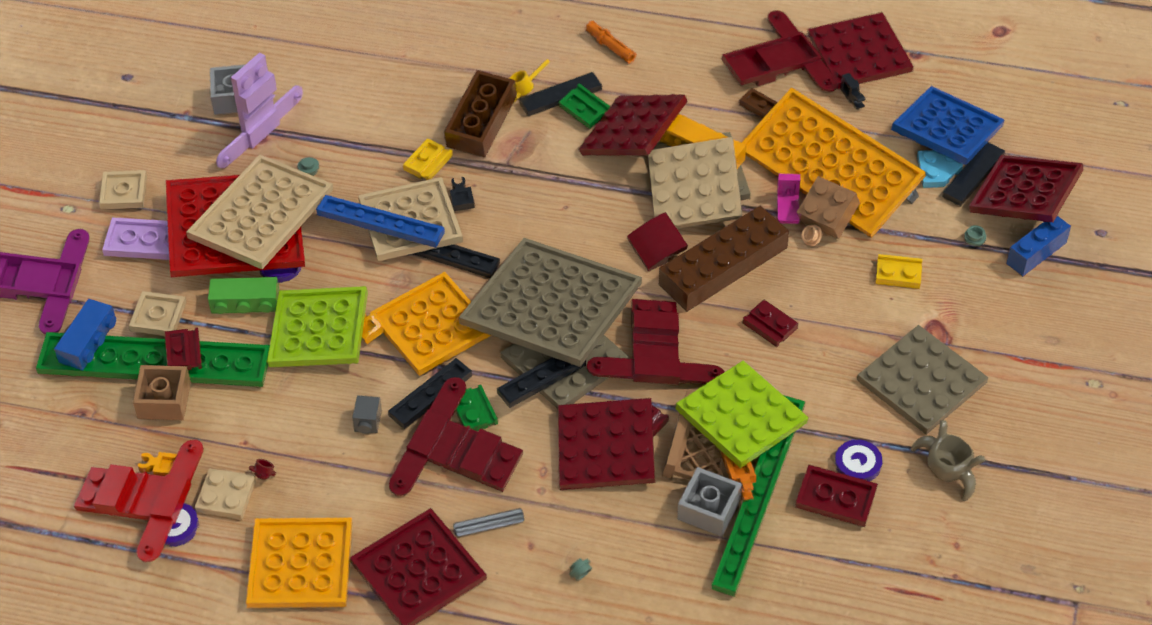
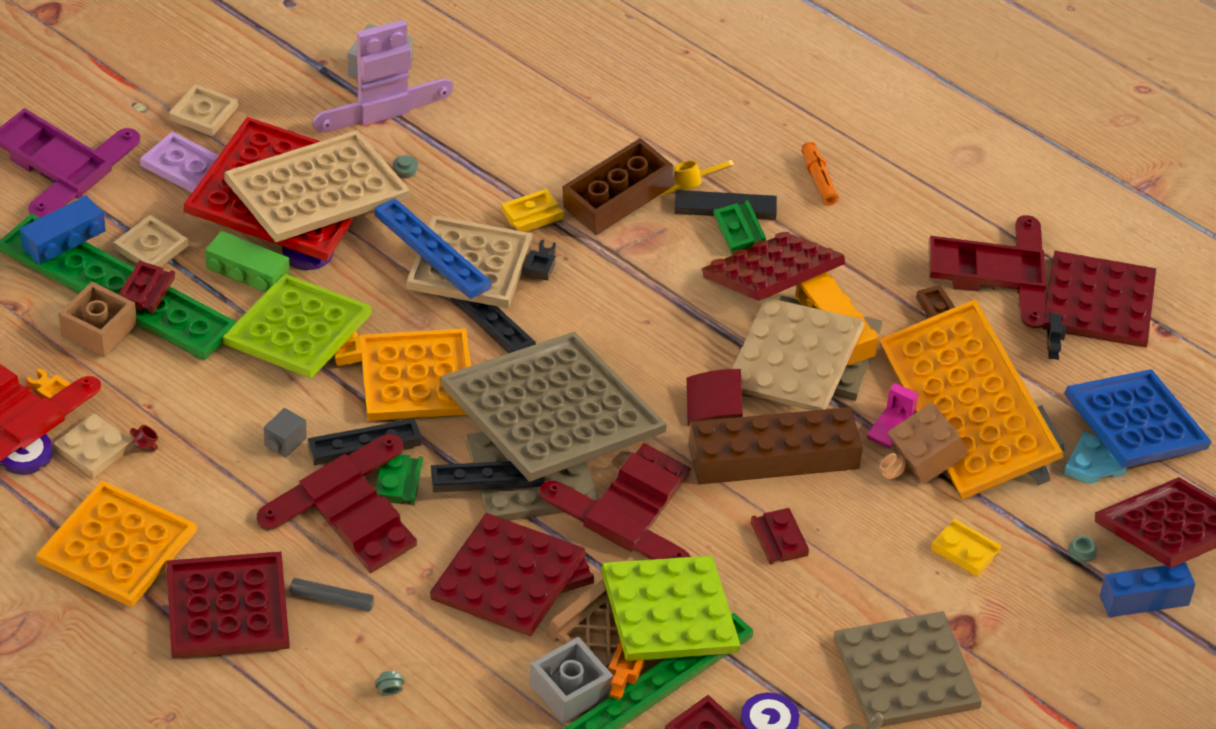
camera: 25 degrees right, 5 degrees down
(973, 174) = (1130, 483): black tile -> none

